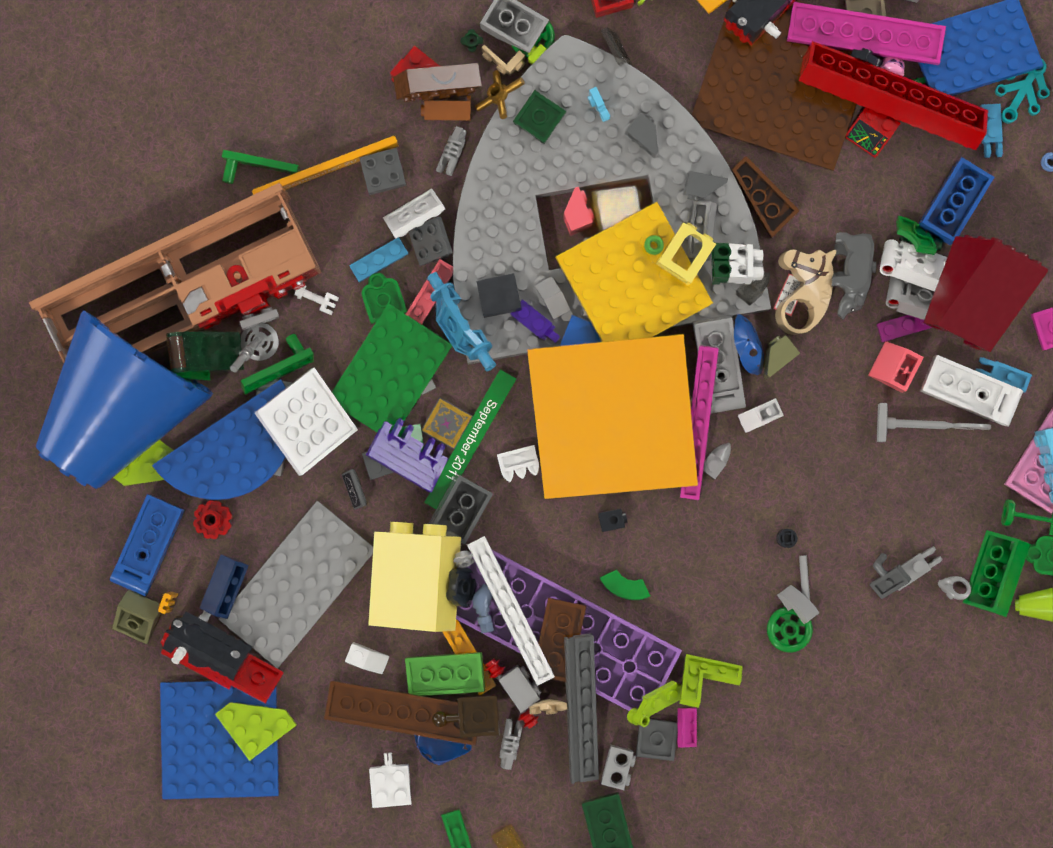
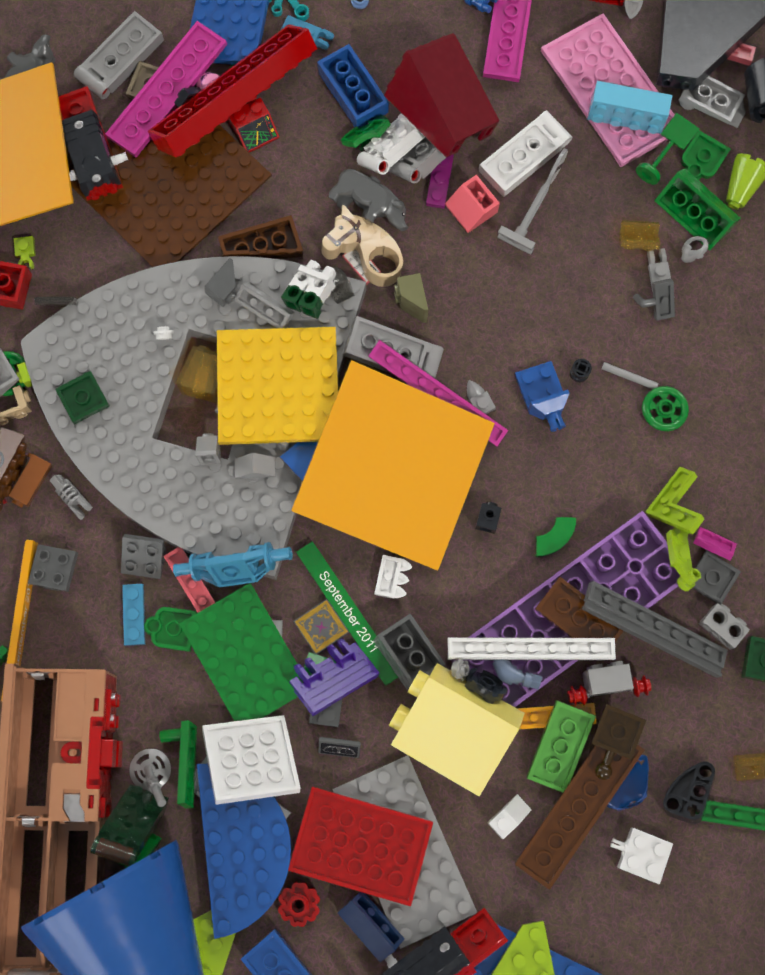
camera: 65 degrees left, 10 degrees down
(252, 321) = (129, 748): light grey plate -> none
(282, 547) = (361, 846): none -> red plate
(319, 299) = (146, 686): white hinge -> none
(414, 213) = (108, 558): white plate -> none
(457, 794) = (683, 793): none -> black beam
(498, 93) = (41, 426): pearl gold bar -> none
(499, 295) = (226, 514): black tile -> none
(510, 744) = (656, 717): light grey hinge -> none
(535, 322) = (268, 494): dark purple hinge -> none
(547, 250) = (208, 449): none -> light grey slope
(550, 706) = (639, 660): tan dish -> none
(576, 214) = (191, 408): coral slope -> none
(596, 100) = (98, 338): medium azure plate -> none
(631, 156) = (163, 333): none -> white plate
(643, 133) = (150, 312): dark grey slope -> none
(660, 245) = (254, 344): bright green plate -> none
(674, 269) = (284, 343): light yellow panel -> none
(743, 331) = (389, 317): blue piece -> none
(749, 515) = (543, 394): none -> blue plate
(760, 415) = (457, 340): white slope -> none
(799, 602) = (639, 390): light grey slope -> none
(942, 532) = (639, 235): none -> clear yellow bracket
(1006, 374) = (523, 118): dark azure hinge -> none

